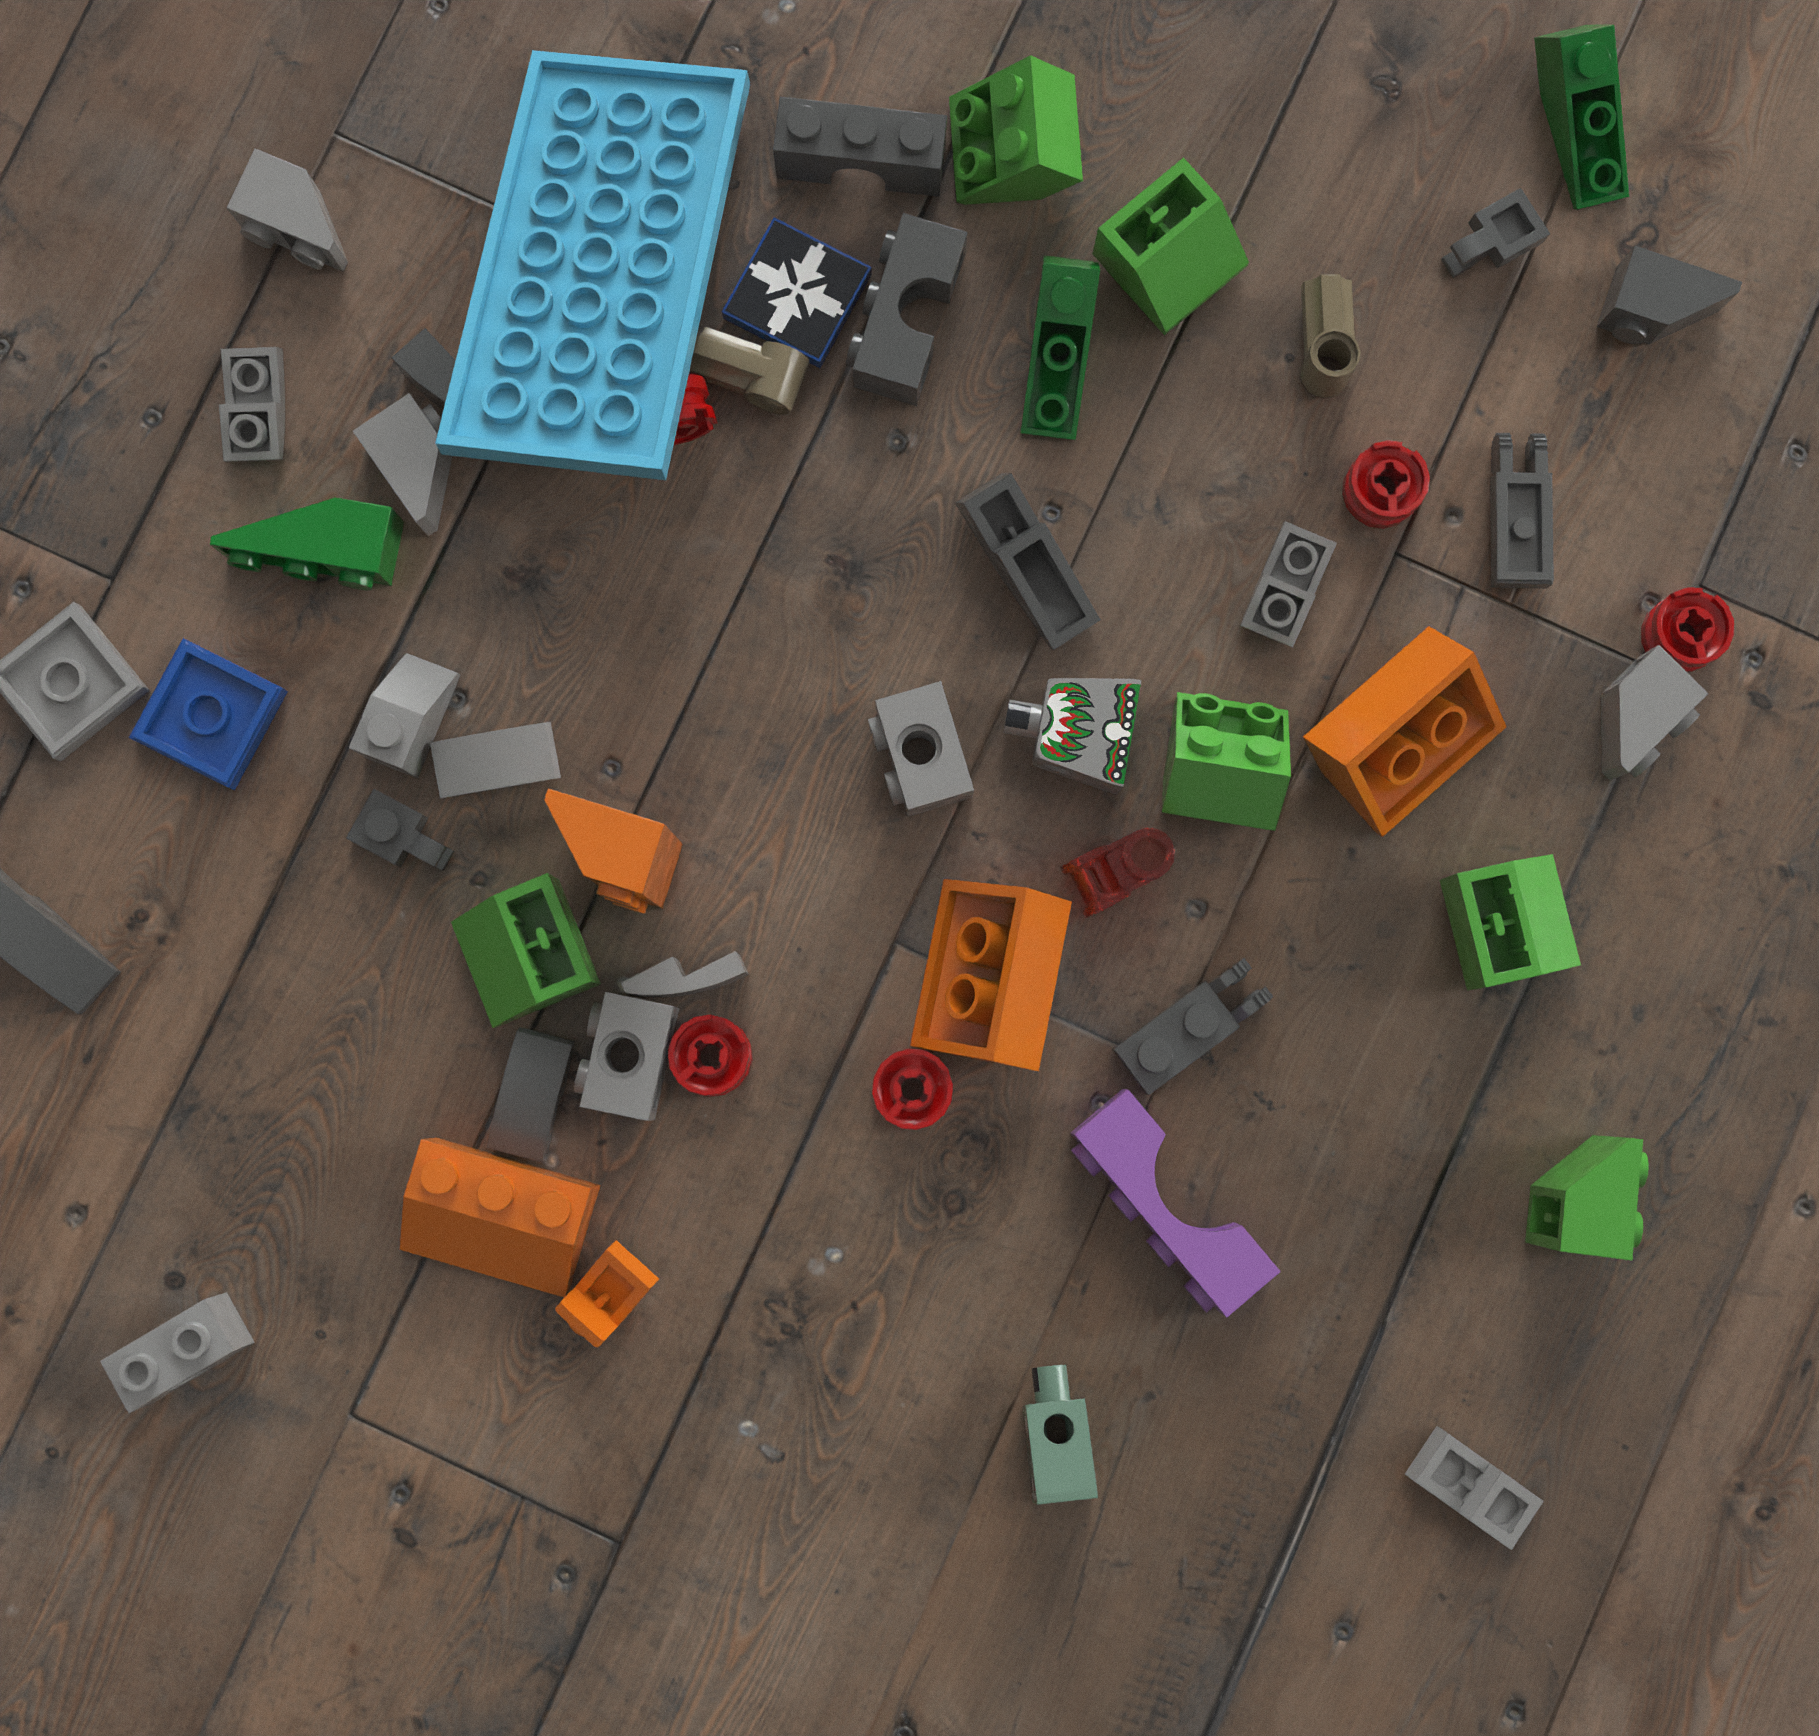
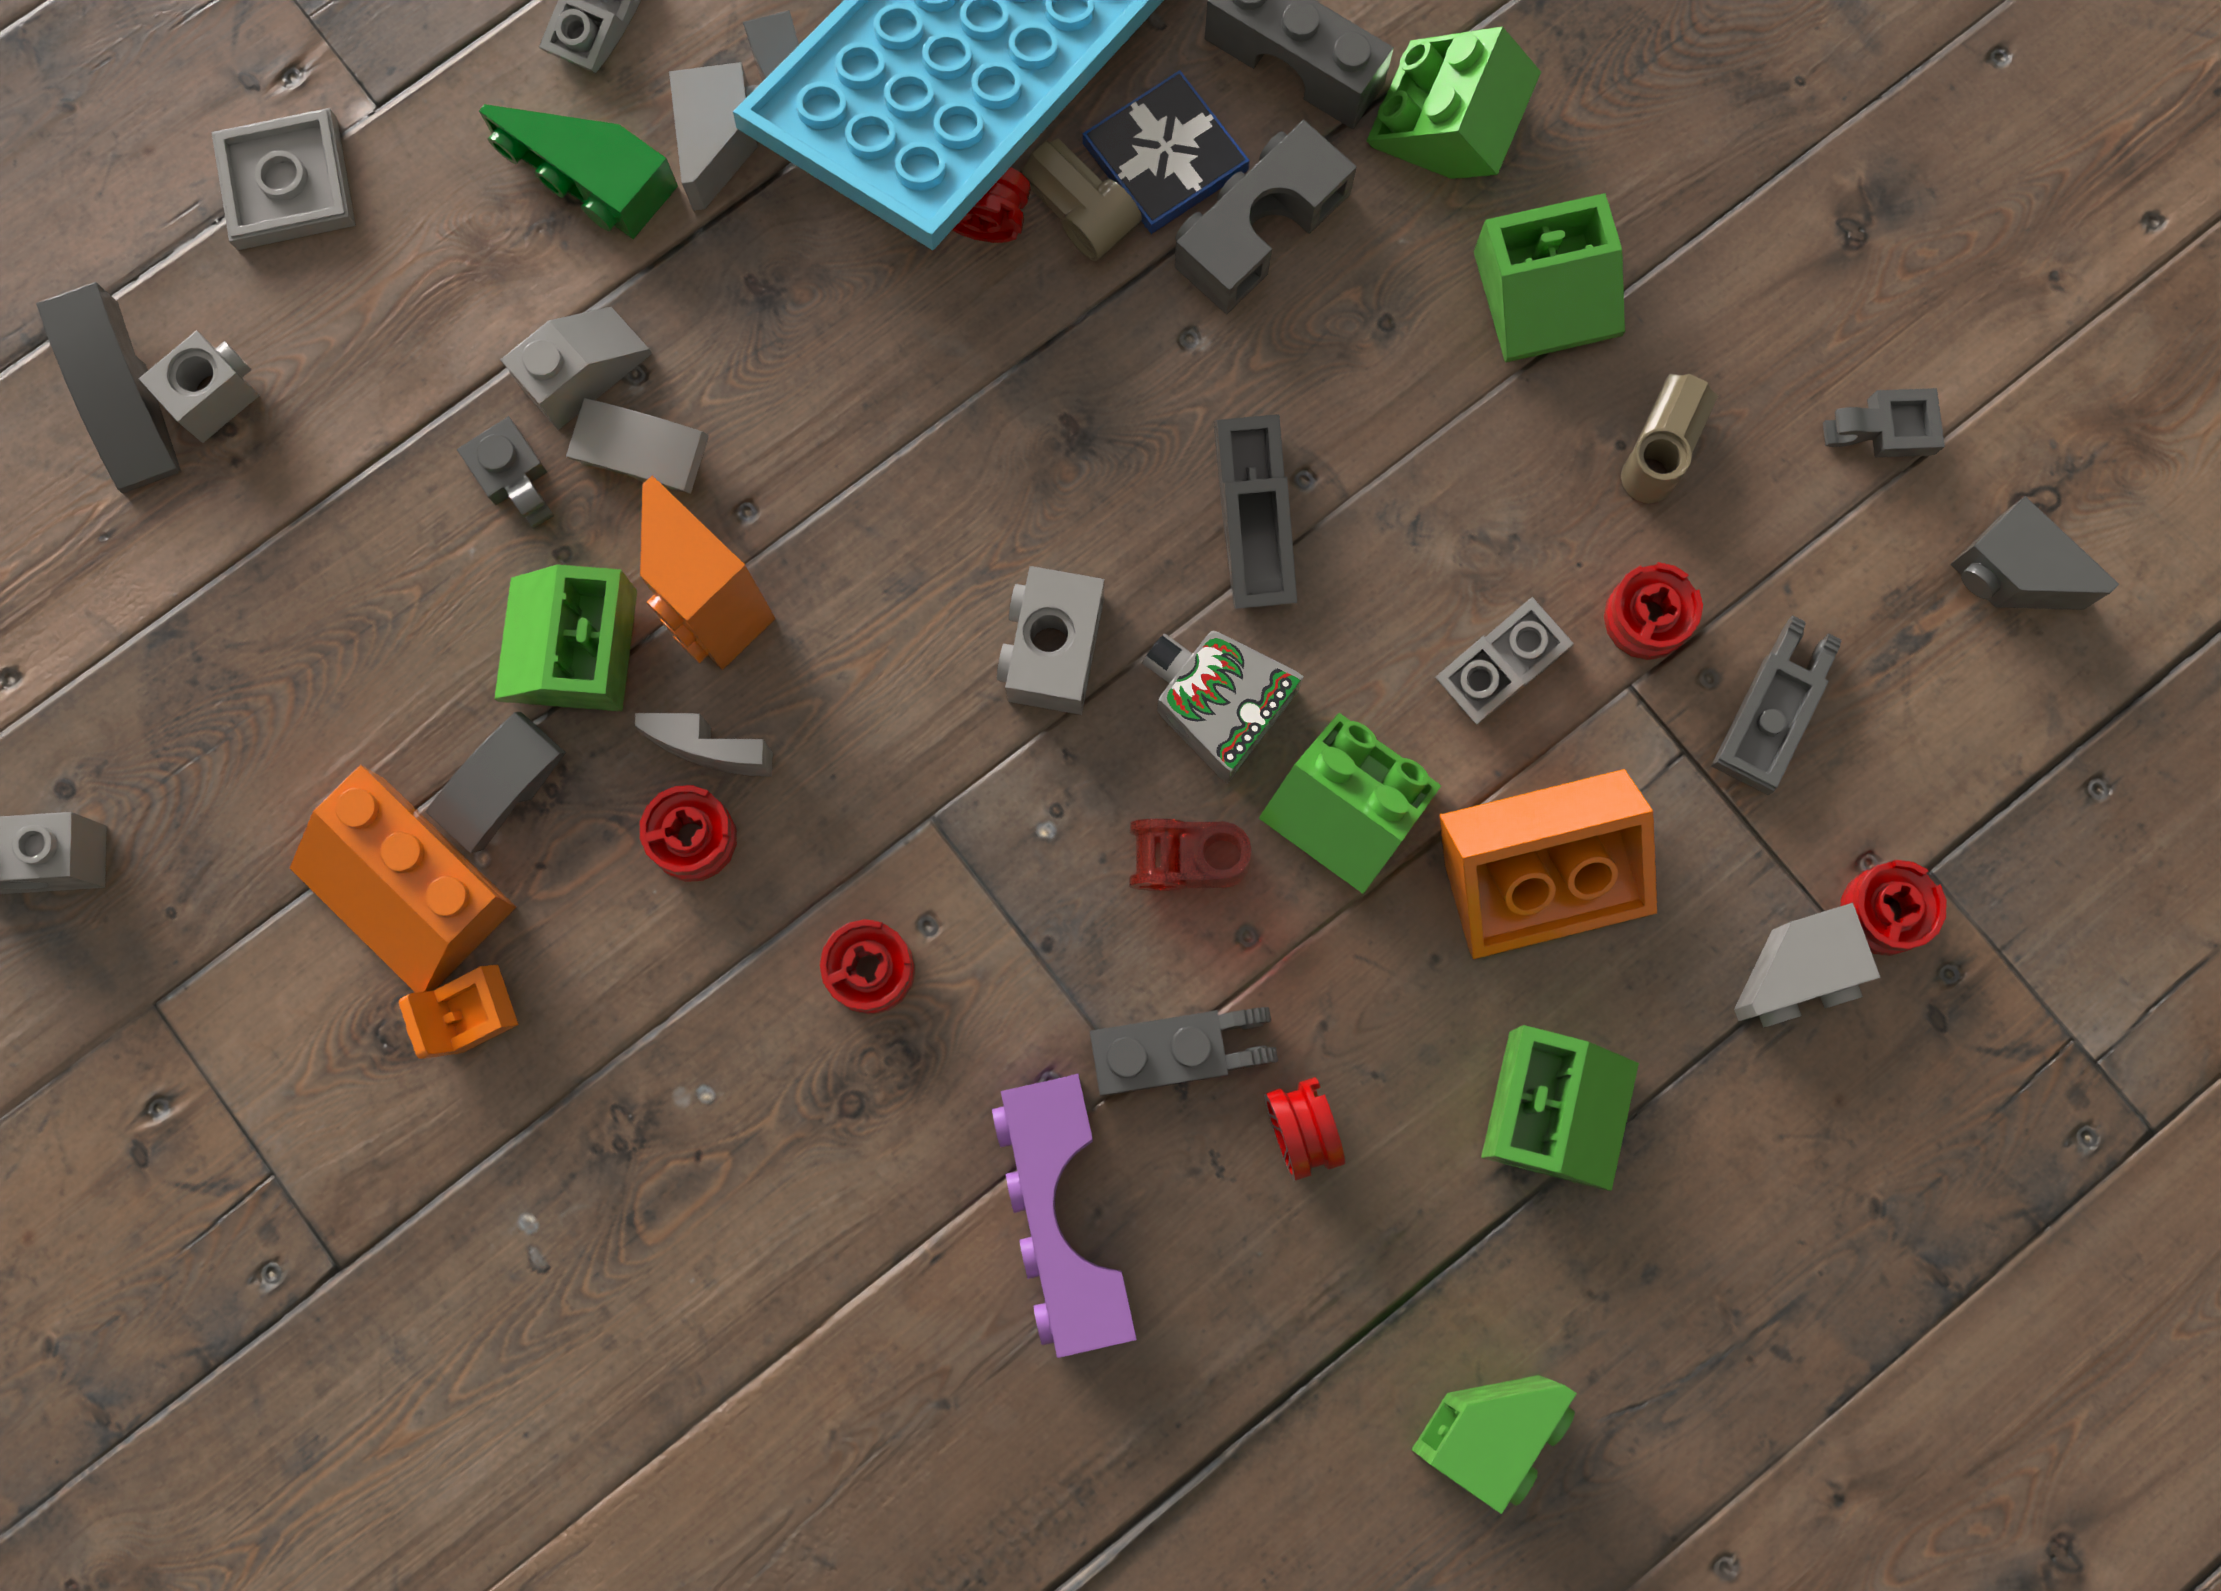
camera: 30 degrees right, 5 degrees down
(77, 895) = (180, 372): none -> light grey brick
(208, 714) = (395, 273): blue tile -> none
(638, 1090) = (605, 828): light grey brick -> none
(991, 973) = (1007, 893): orange slope -> none
(1060, 347) = (1394, 321): green slope -> none
(1063, 1469) = (815, 1425): sand green torso -> none
(1324, 1040) = (1304, 1129): none -> red wheel
(1585, 111) = (2040, 347): green slope -> none

